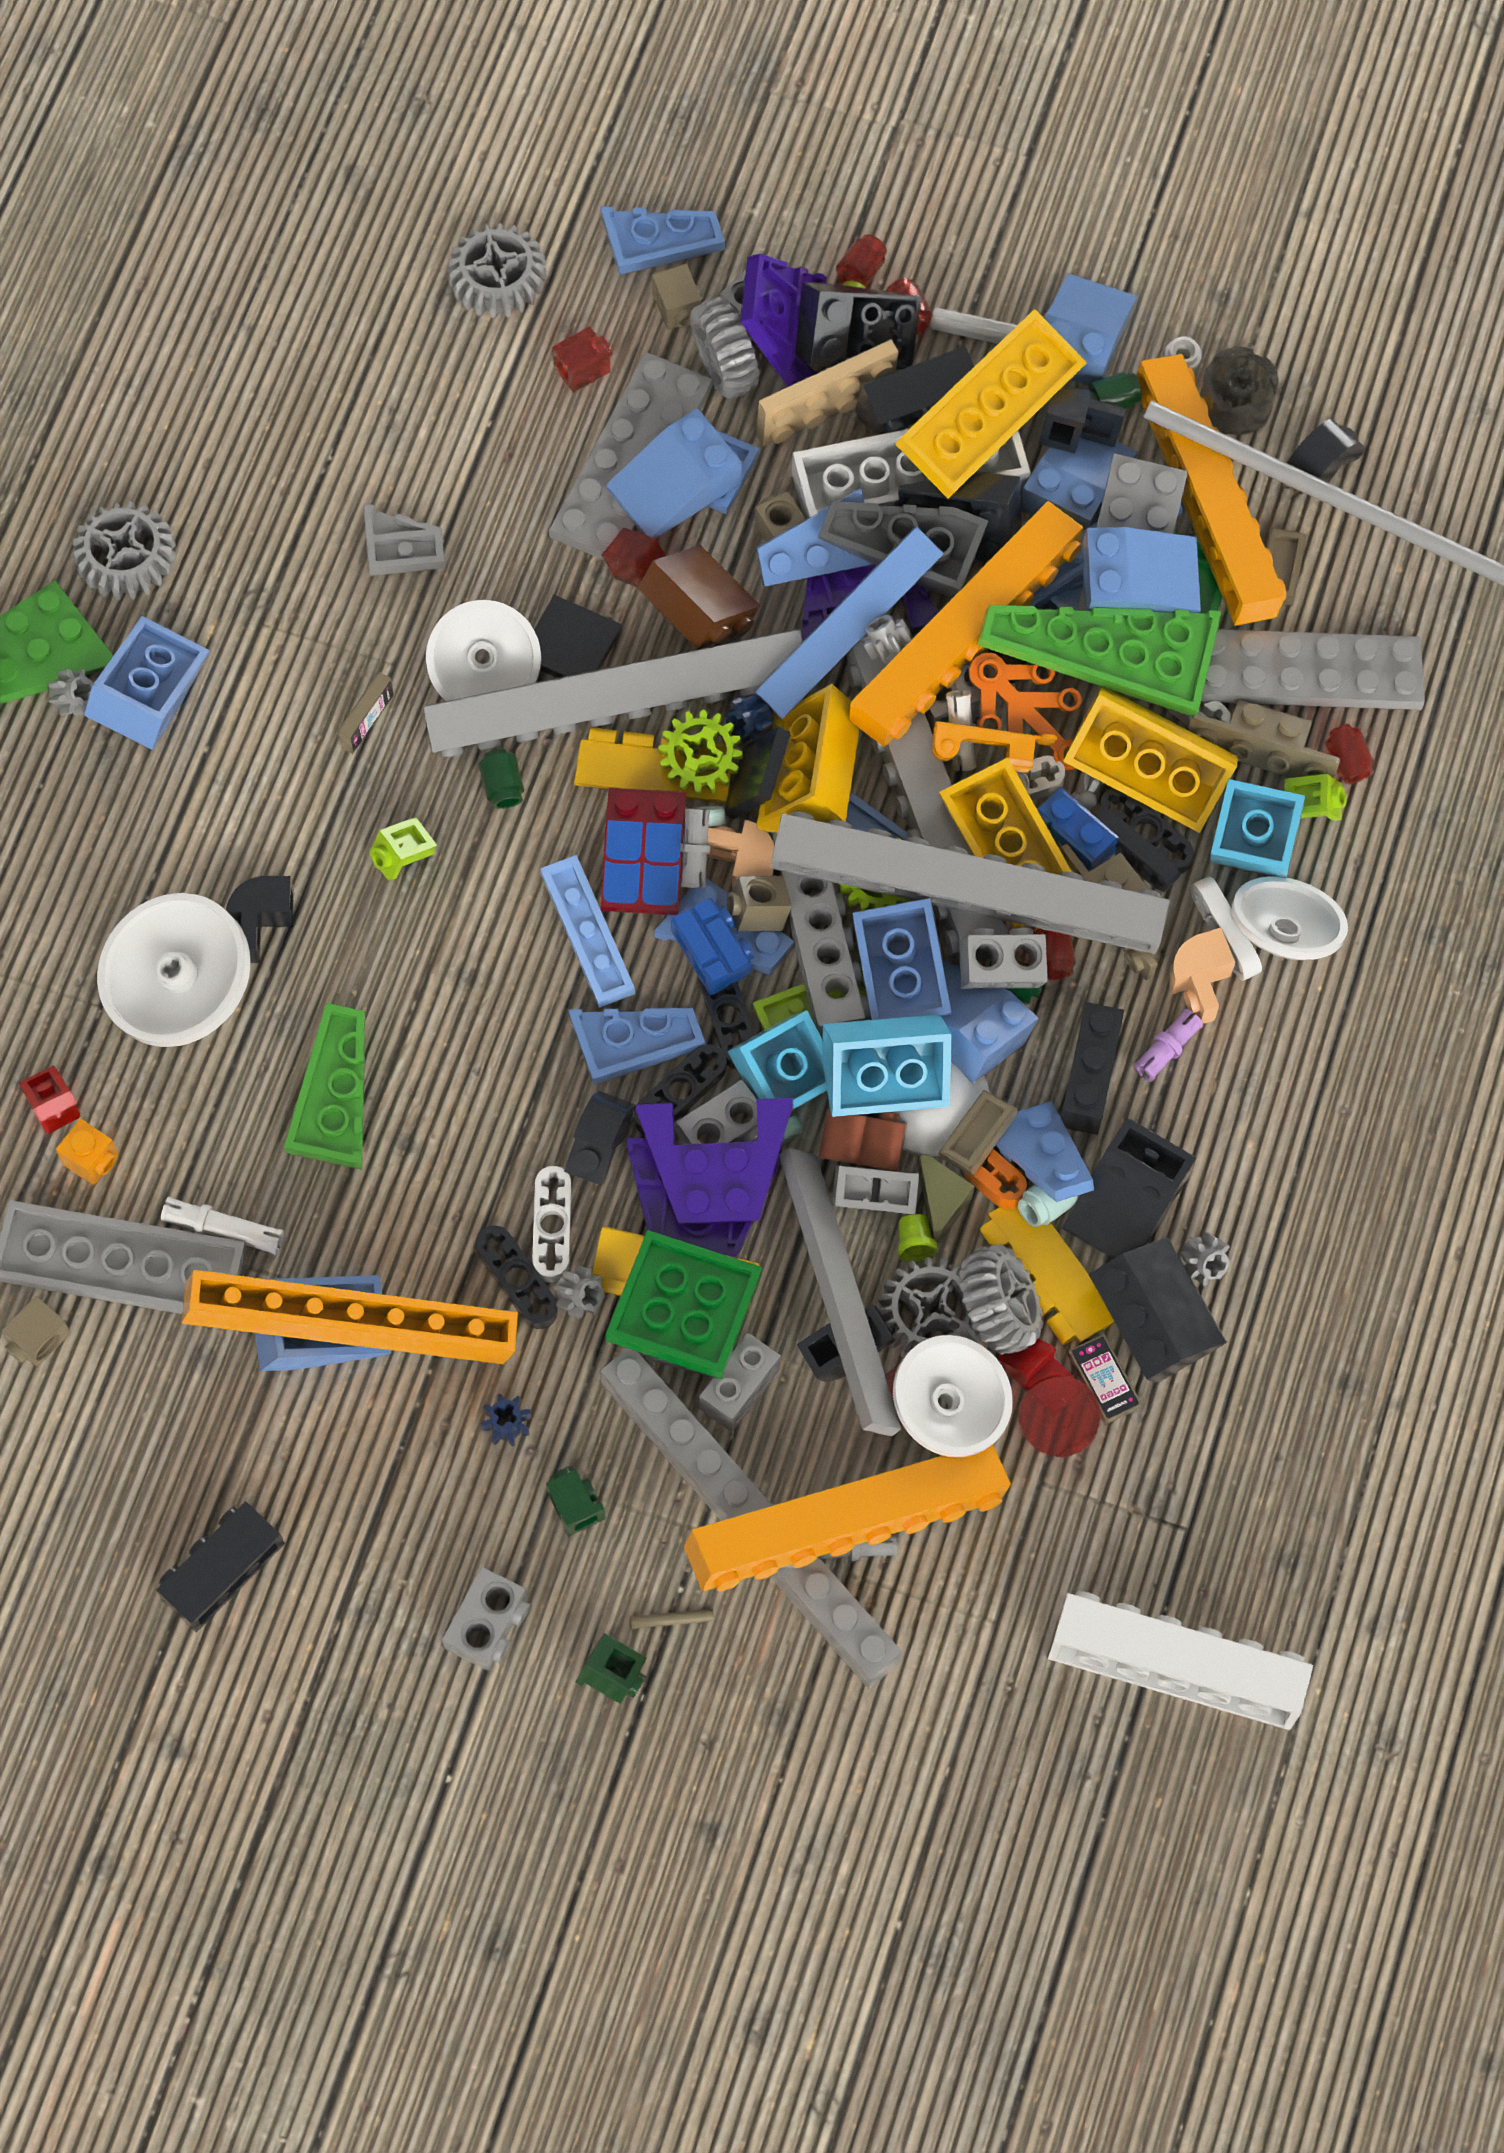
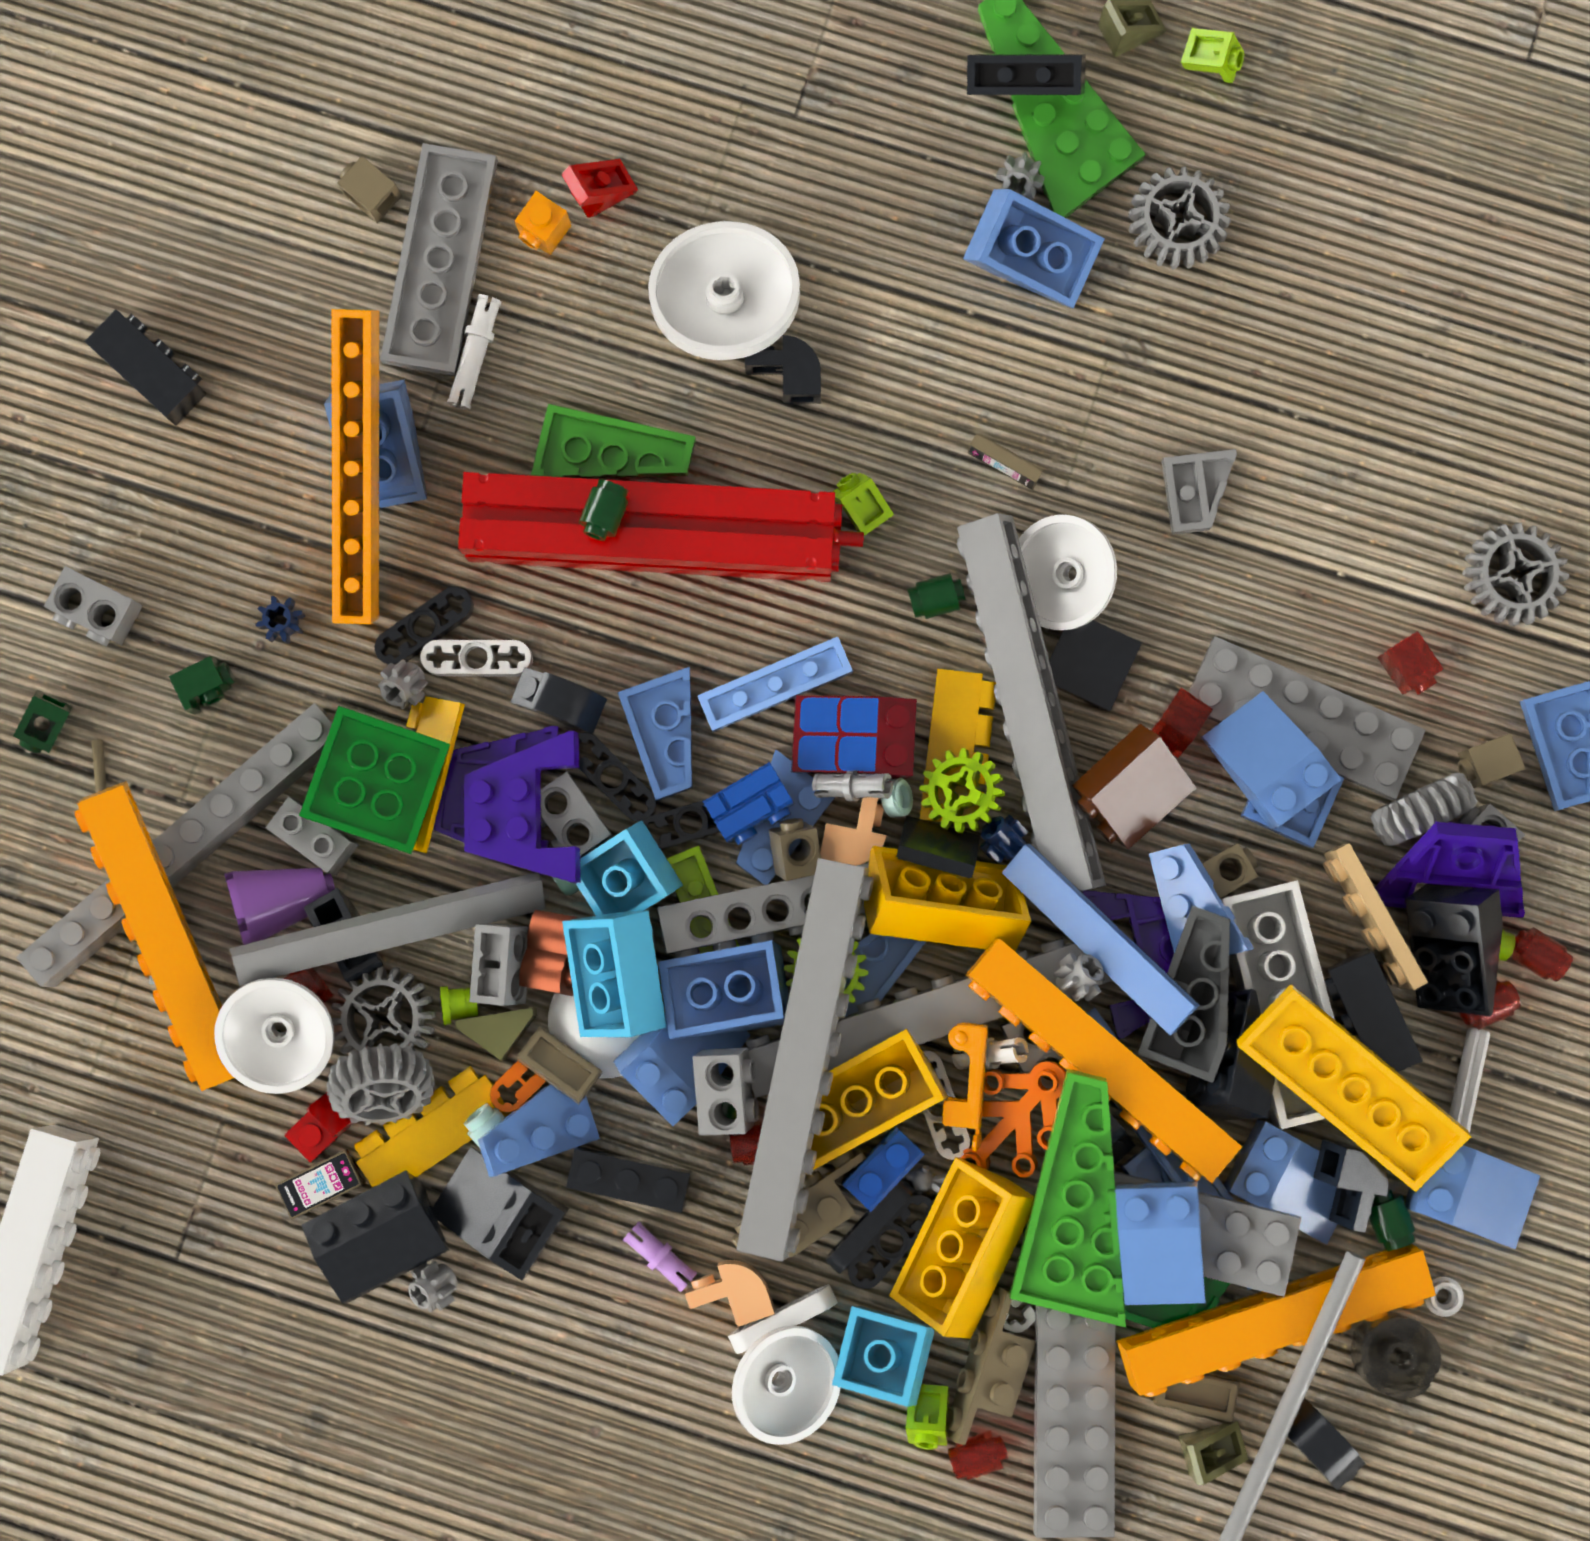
camera: 95 degrees right, 15 degrees up
(410, 1059) = (604, 510): none -> dark green brick
(422, 1040) = (661, 531): none -> red brick
(809, 1421) = (273, 898): none -> medium lavender cone
(1059, 1415) = (277, 1139): clear red tile -> none
(1336, 553) = (1213, 1451): none -> olive slope

